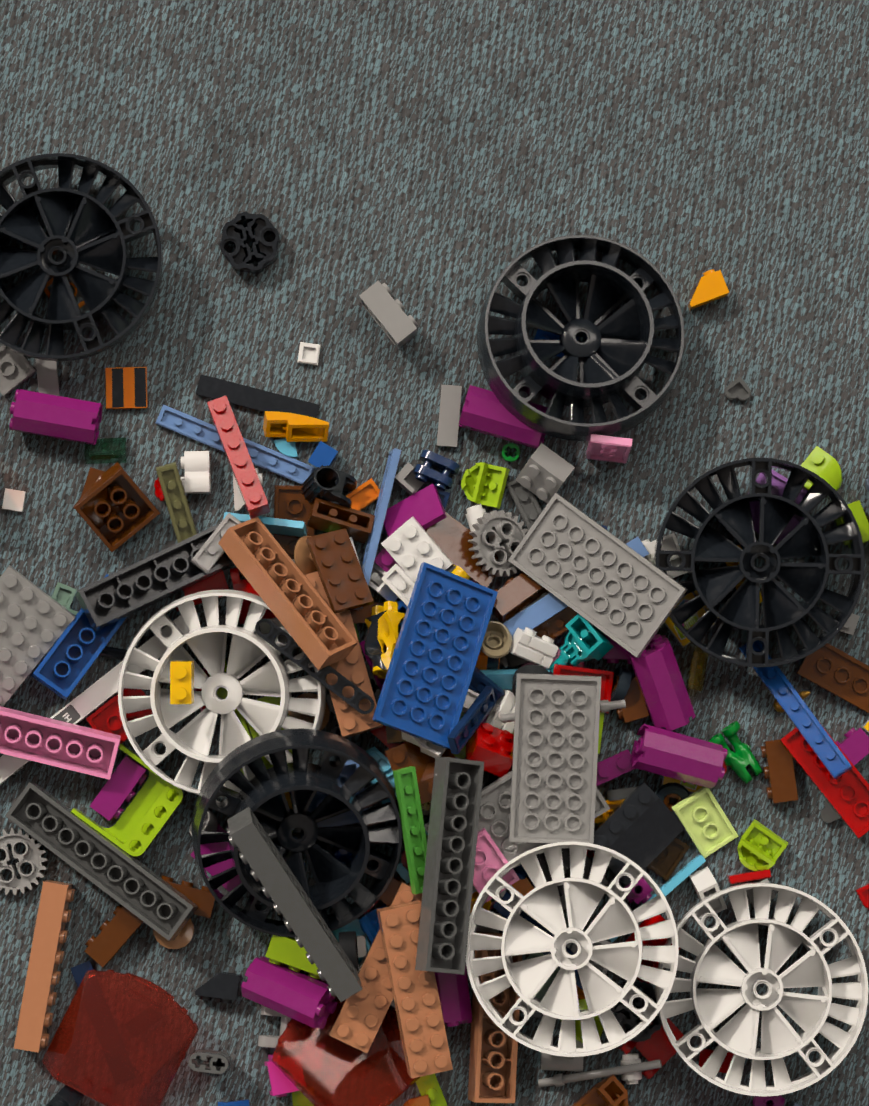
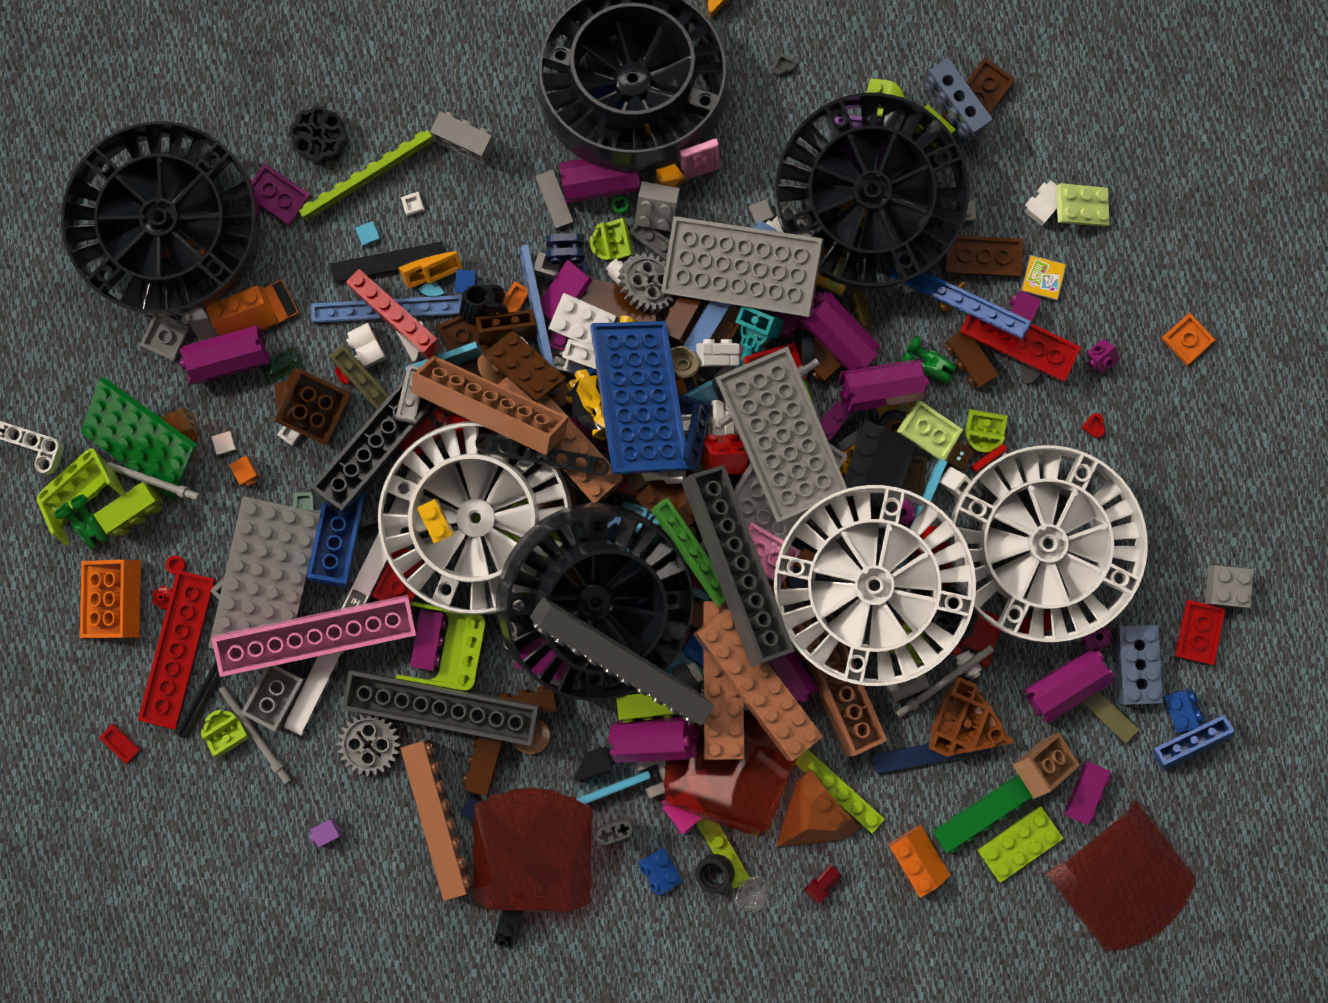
camera: 25 degrees left, 0 degrees up
(21, 538) = (245, 471): none -> orange brick
(79, 524) = (289, 435): none -> white tile
(93, 382) = (242, 311): none -> orange slope
(183, 282) = (278, 194): none -> magenta tile
(229, 1019) = (610, 789): none -> medium azure tile
(251, 362) = (367, 233): none -> medium azure tile
(285, 303) = (361, 178): none -> lime plate
(571, 450) = (670, 176): none -> light orange slope
(645, 525) = (760, 211): none -> light grey tile
(722, 860) = (959, 455): none -> dark brown brick

